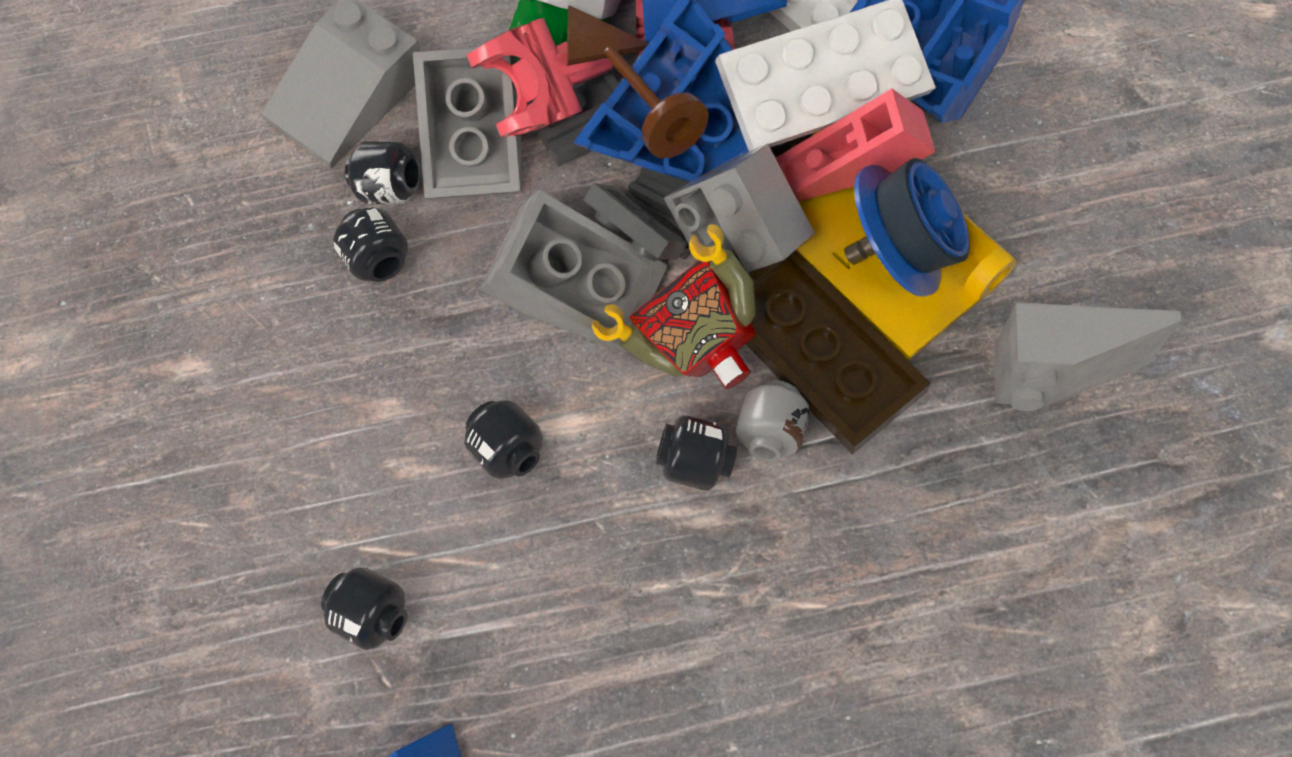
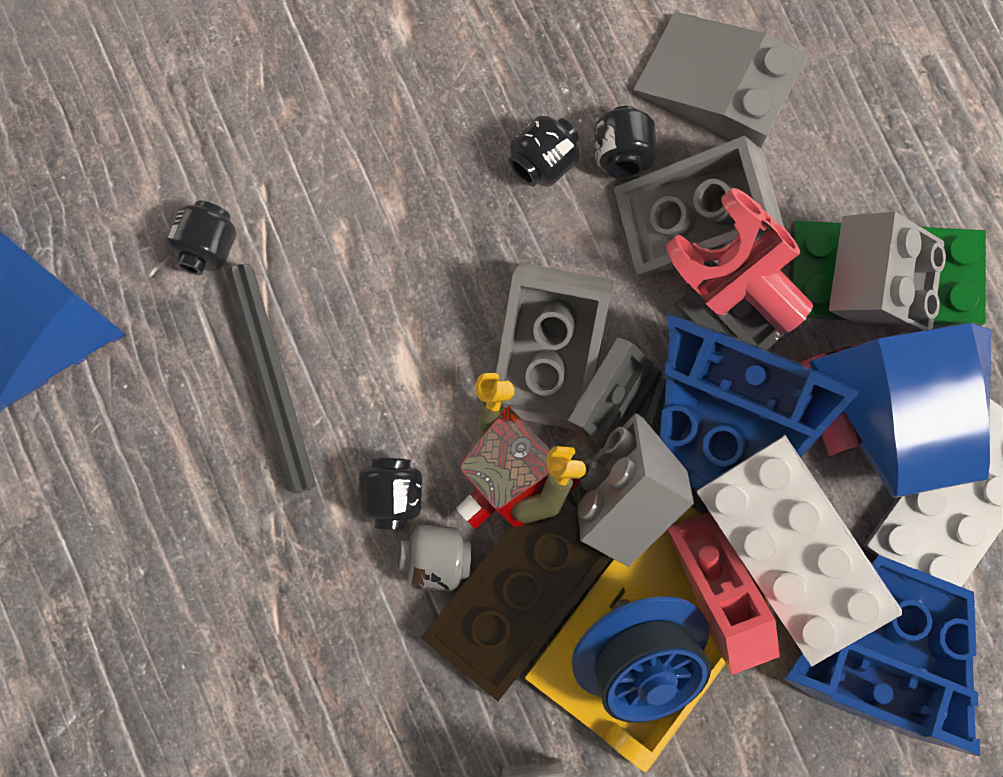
camera: 80 degrees right, 15 degrees up
(502, 438) = (373, 318): black head -> none
(541, 563) = (271, 378): none -> dark grey axle
(672, 122) = (796, 314): reddish brown piece -> none

